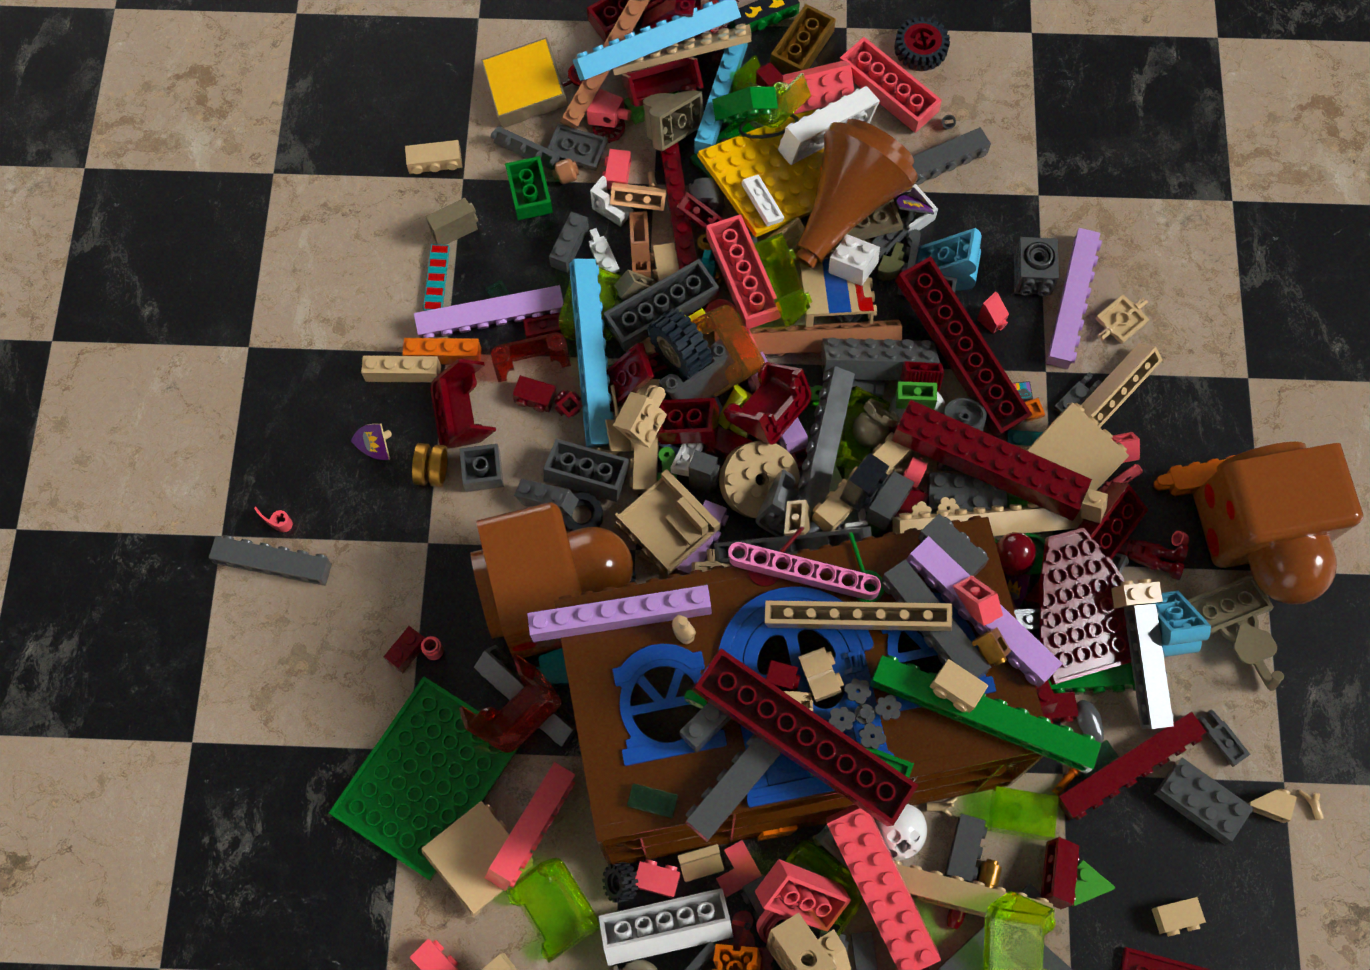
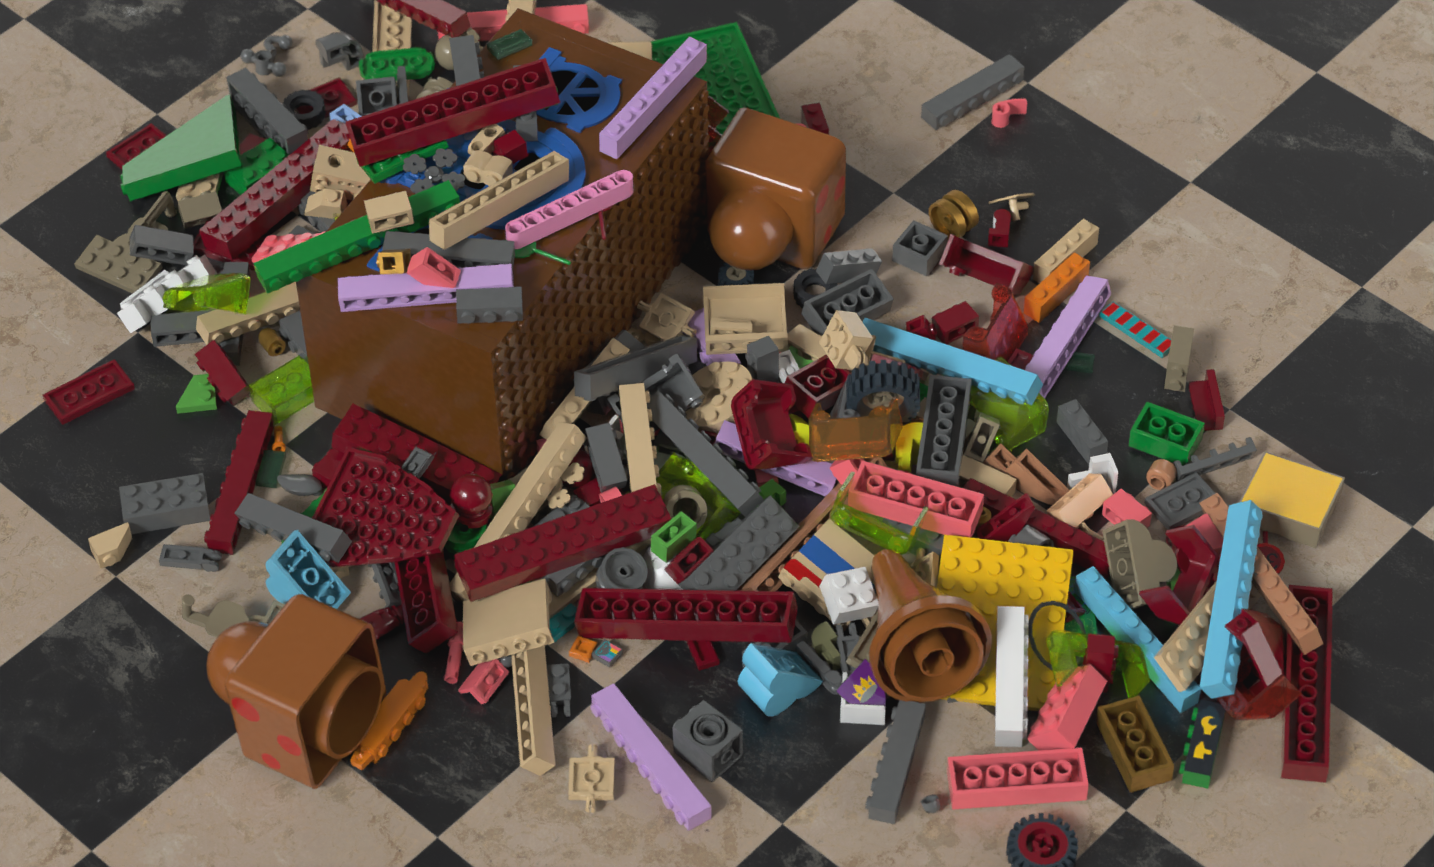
camera: 130 degrees right, 20 degrees down
(409, 432) = (1001, 226): none -> dark red leg
(433, 157) = (1269, 394): tan brick -> none
(473, 187) = (1207, 401): none -> dark red panel
(602, 252) = (1051, 453): white hinge -> none
(683, 629) = (601, 117): tan piece -> none
(745, 104) = (1089, 611): green brick -> none
(762, 200) = (970, 554): white plate -> none
(797, 515) = (649, 370): tan slope -> none
(865, 482) = (629, 421): black brick -> none
(993, 313) = (696, 677): coral slope -> none
(1094, 505) = (448, 576): tan brick -> none
(1136, 594) = (350, 549): tan brick -> none
(1178, 916) = (114, 427): tan brick -> none
(1314, 803) = (79, 577): tan bar -> none

